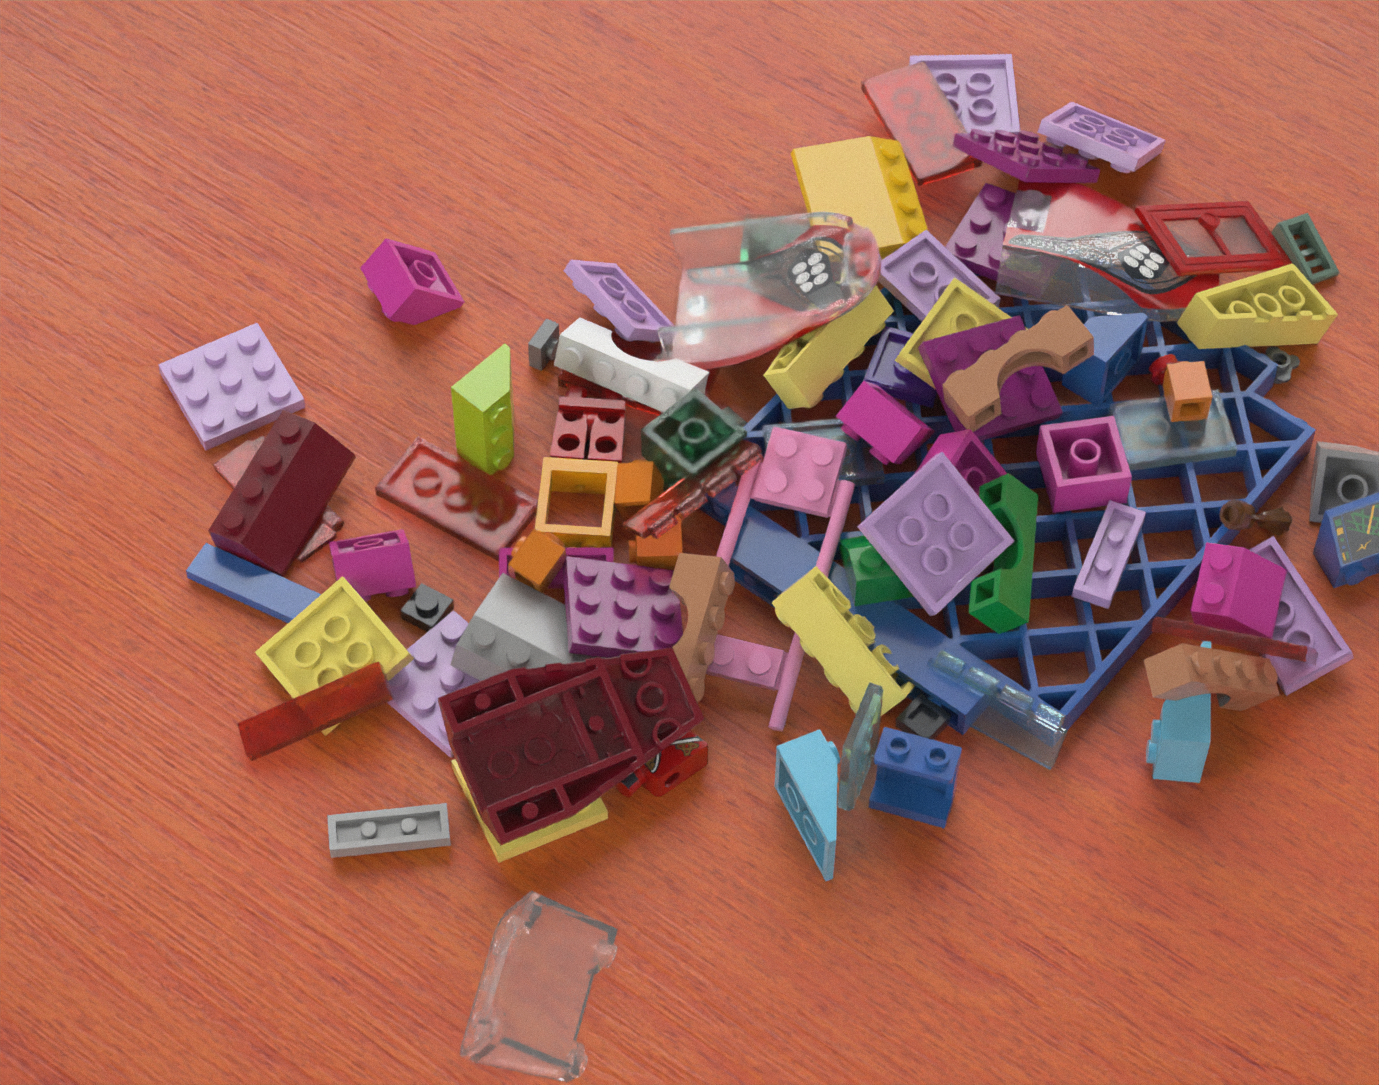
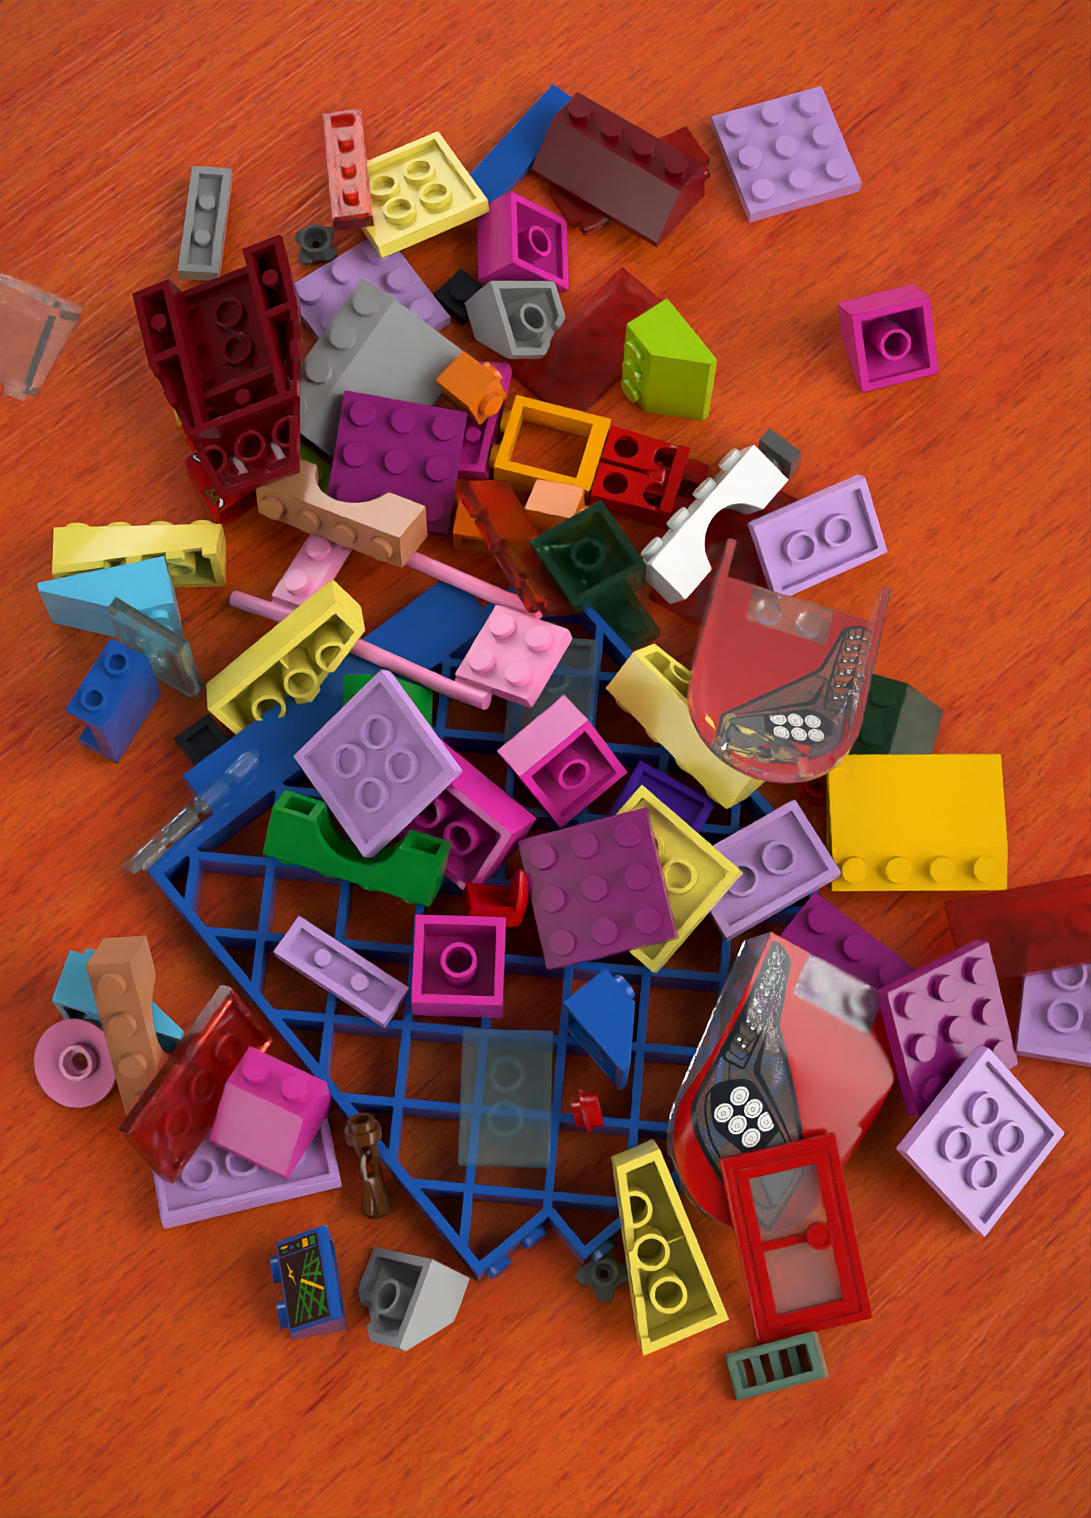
camera: 100 degrees right, 15 degrees up
(393, 725) = (315, 235): none -> dark grey plate
(453, 553) = (516, 317): none -> light grey slope
(755, 802) = (192, 551): none -> light yellow wedge
(1017, 450) = (498, 900): none -> red plate
(1054, 342) = (589, 940): nougat arch -> none
(1187, 391) = (538, 1113): orange brick -> none
(1251, 748) = (59, 1068): none -> bright pink dish

